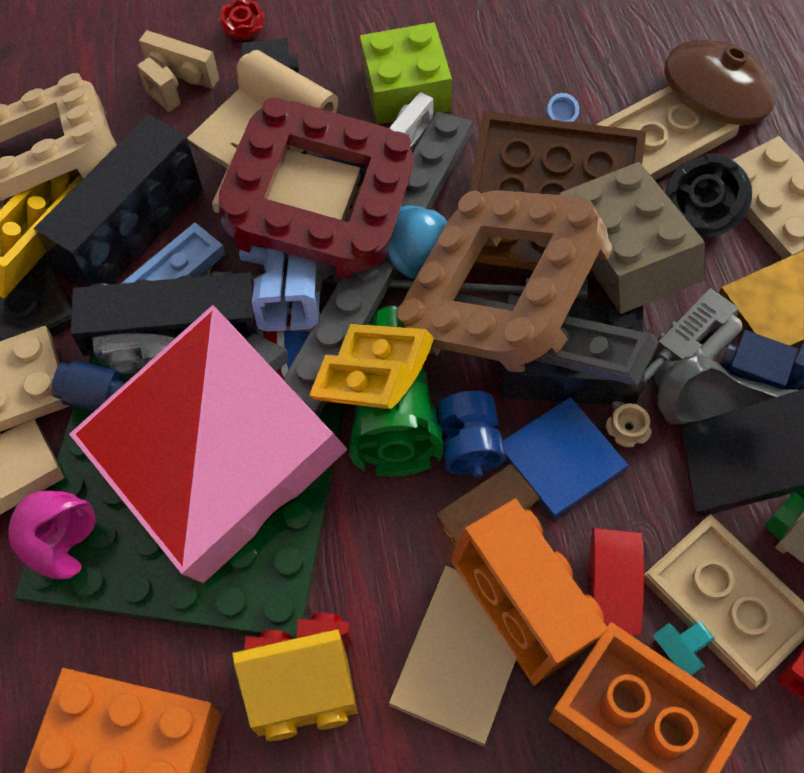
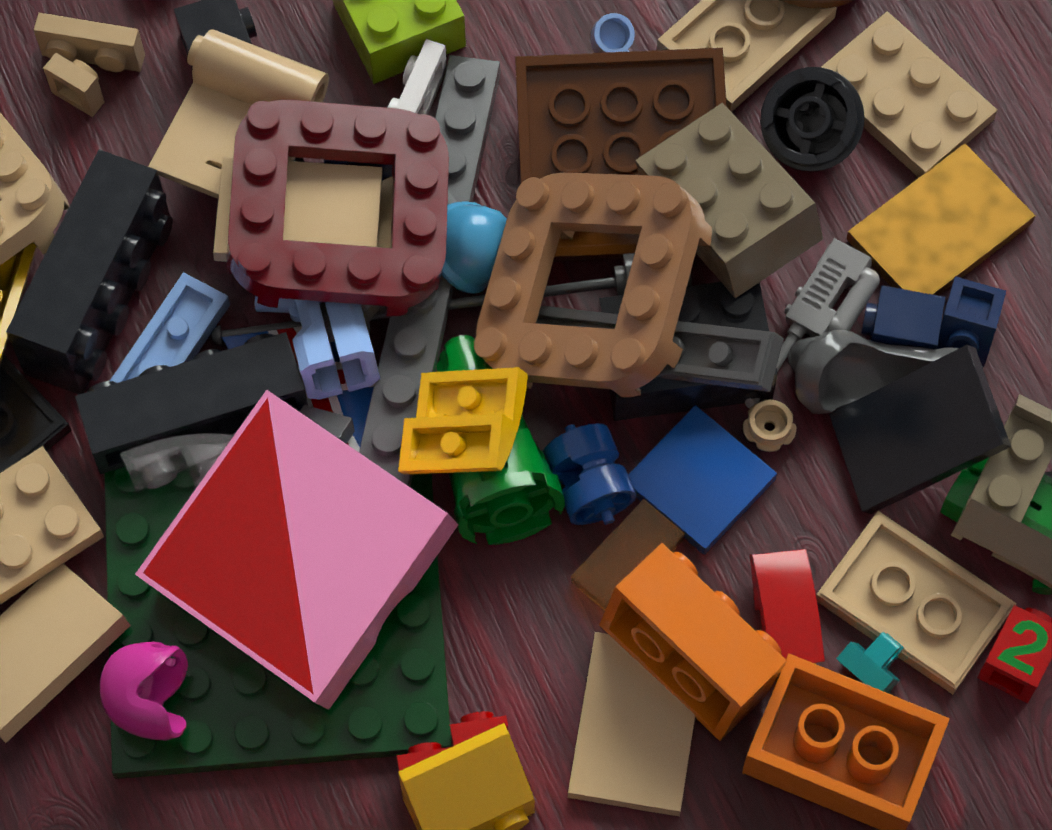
camera: 15 degrees left, 5 degrees up
(84, 384) = (129, 512): dark blue brick -> none

